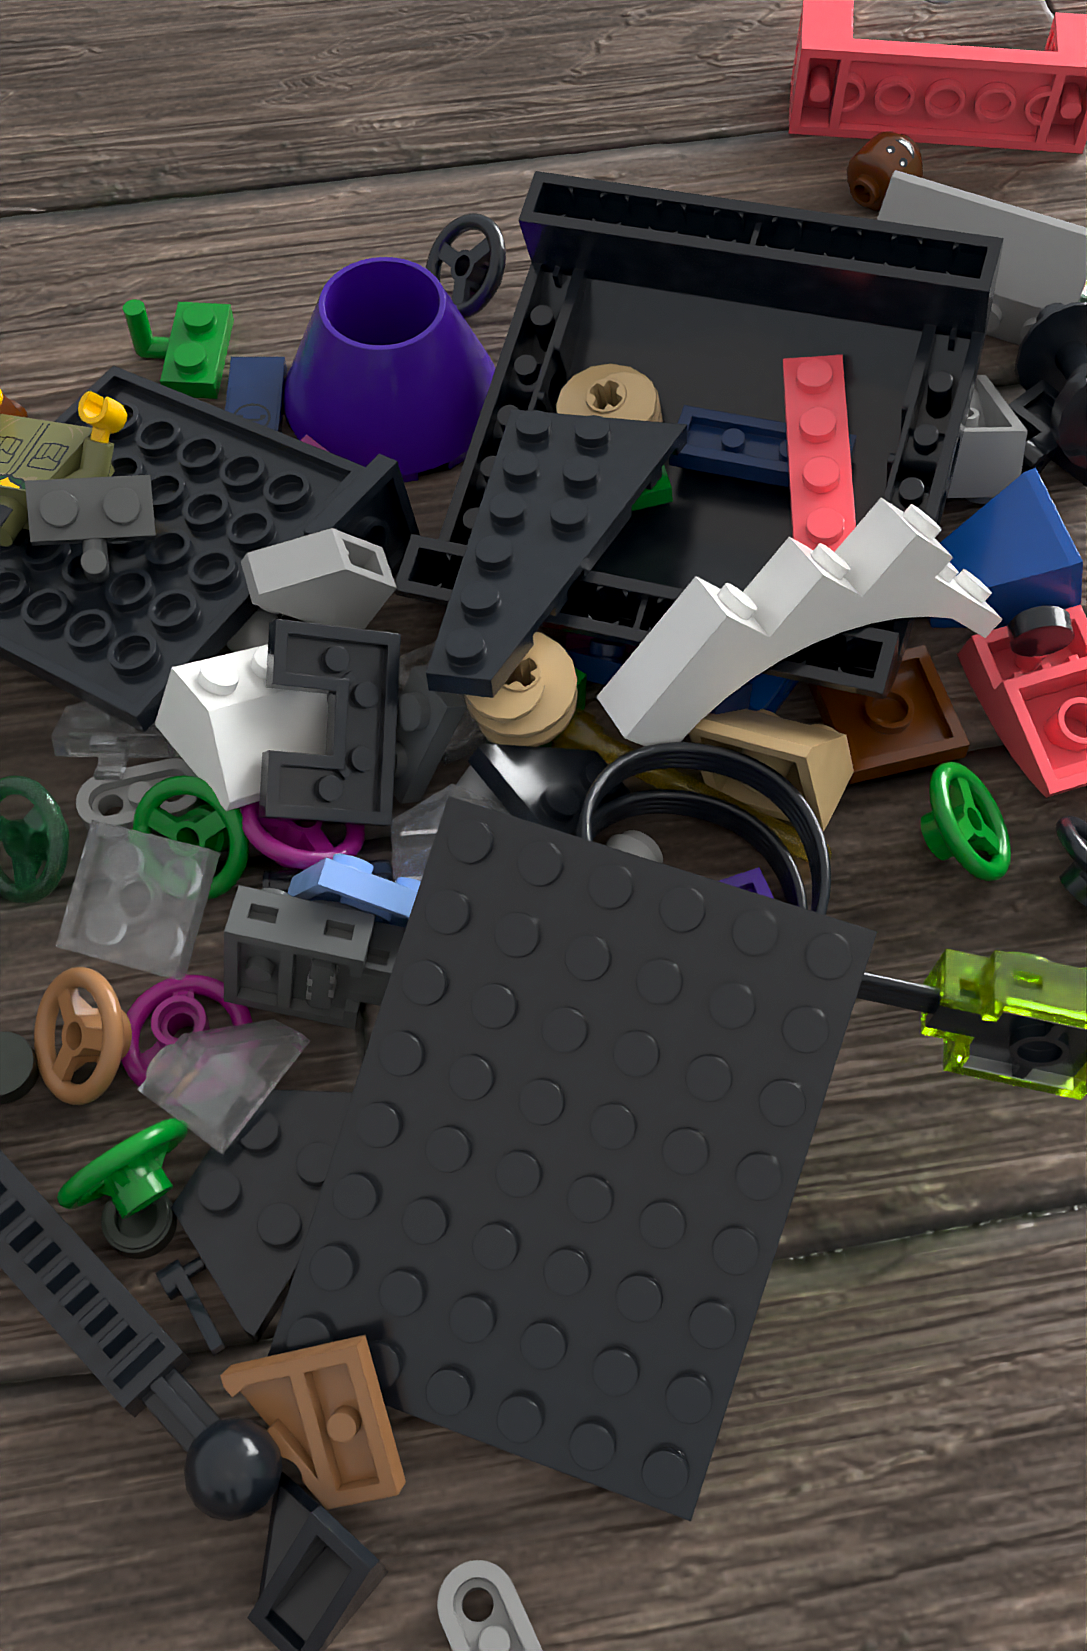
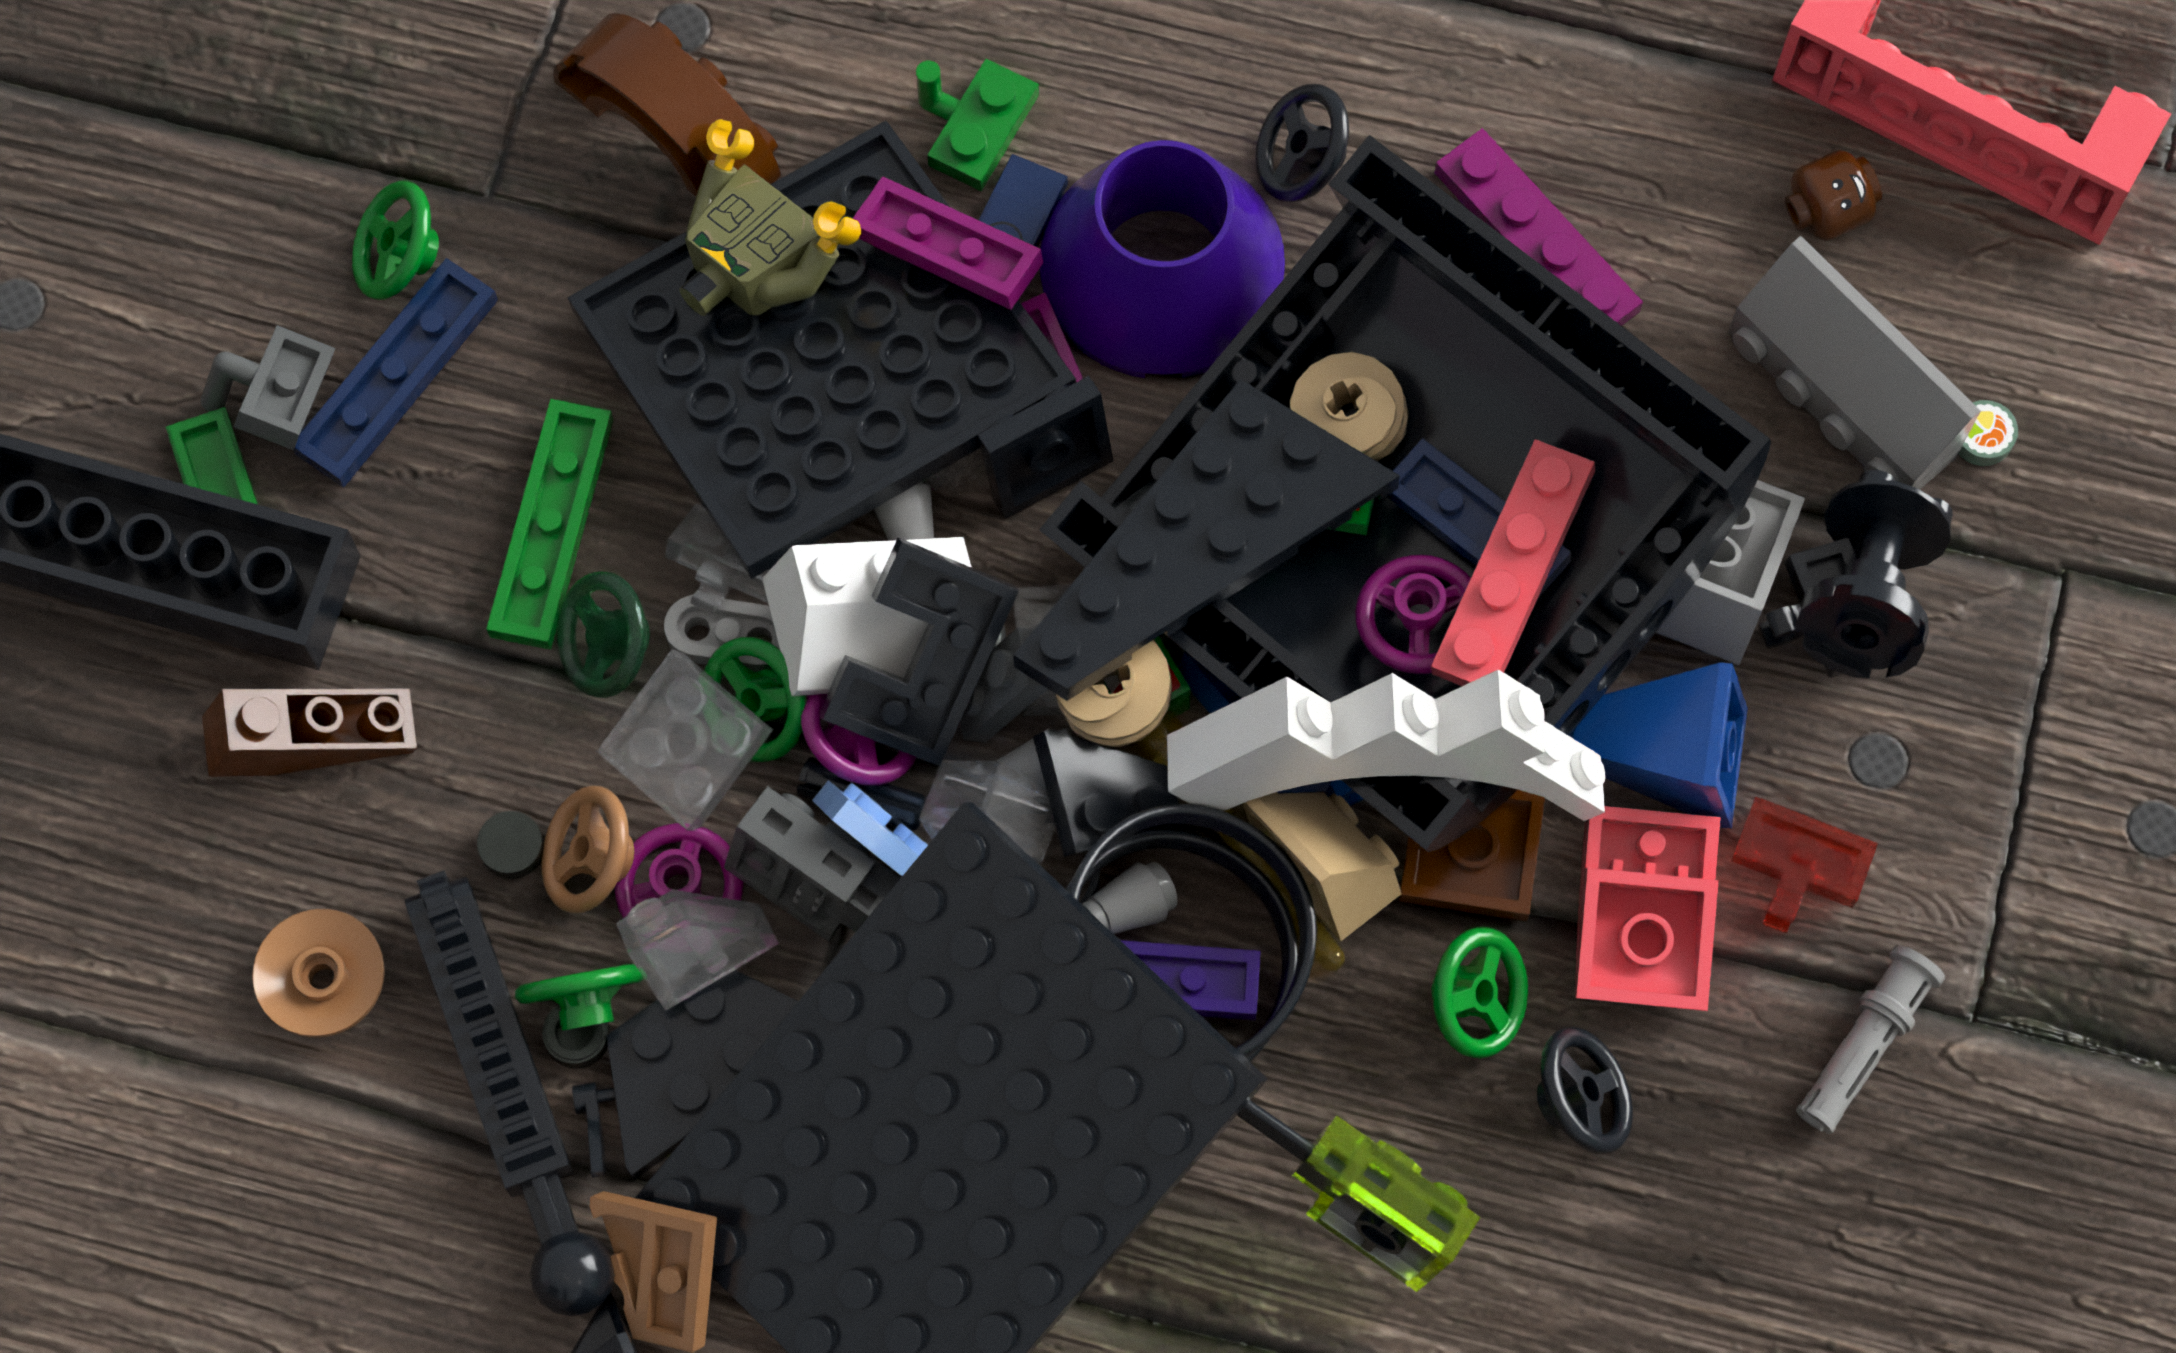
camera: 25 degrees right, 10 degrees up
(90, 514) = (788, 327): dark grey plate -> none
(207, 412) = (947, 243): none -> magenta plate
(321, 579) = (974, 492): light grey slope -> none
(751, 526) = (1414, 589): none -> magenta piece
(1040, 631) = (1651, 833): tile -> none

